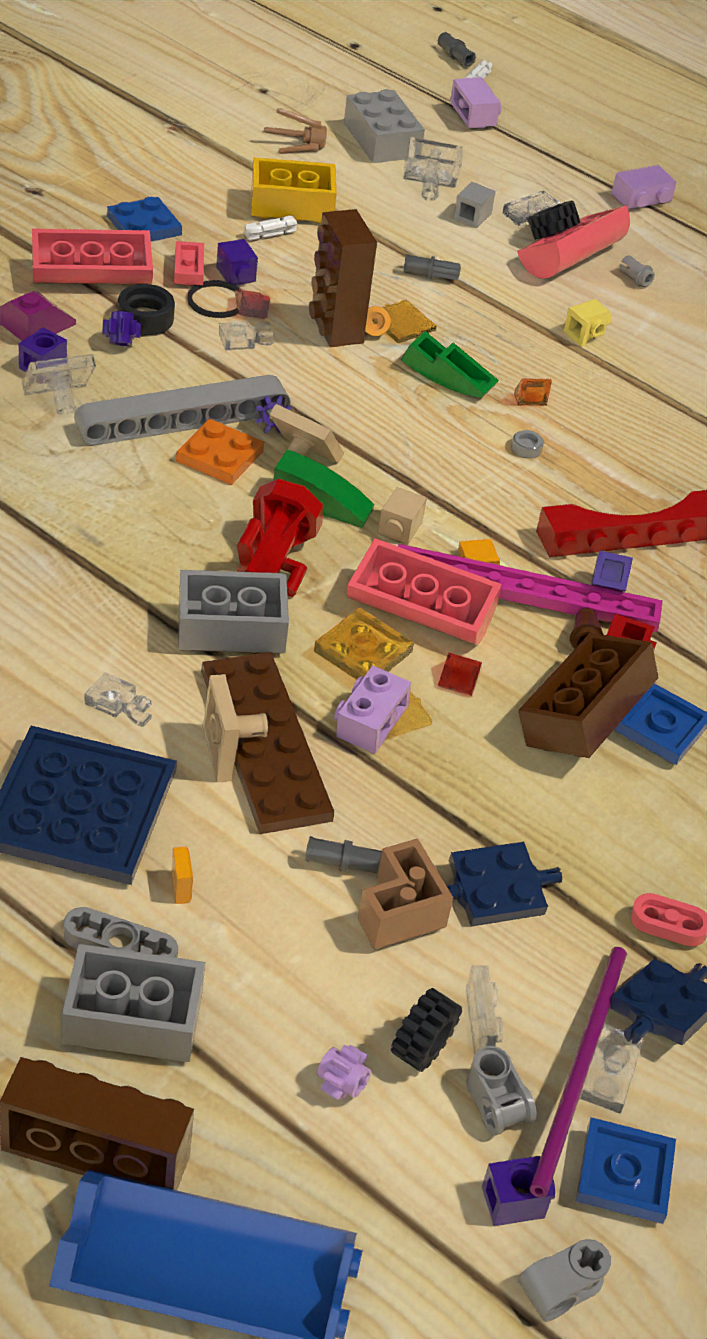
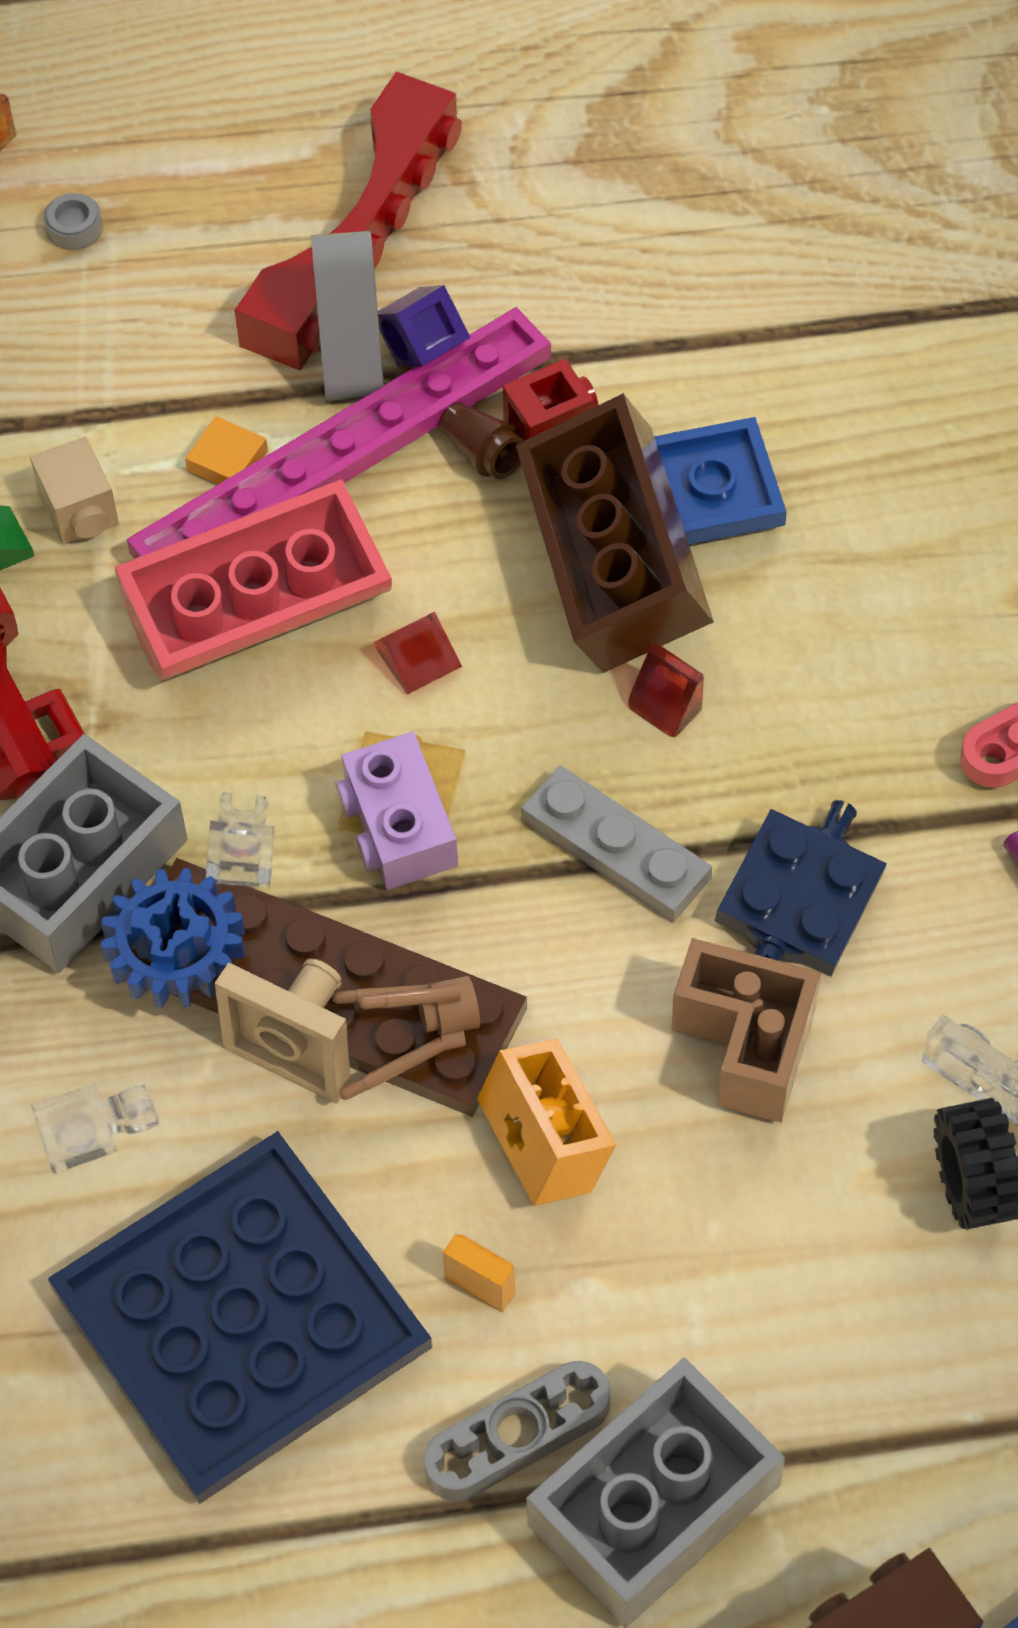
camera: 40 degrees left, 15 degrees up
(226, 656) = (154, 920): none -> blue gear
(276, 849) = (545, 1121): none -> light orange brick
(291, 775) = (443, 1007): none -> medium nougat plant
(298, 668) = (240, 845): none -> clear plate
(343, 855) = (615, 1036): dark grey pin -> none
(344, 1072) = (954, 1310): lavender gear -> none
(363, 642) = (271, 733): clear yellow plate -> none
(447, 802) = (616, 843): none -> light grey plate
(540, 771) = (667, 691): none -> clear red slope
(581, 537) = (347, 314): none -> light grey beam

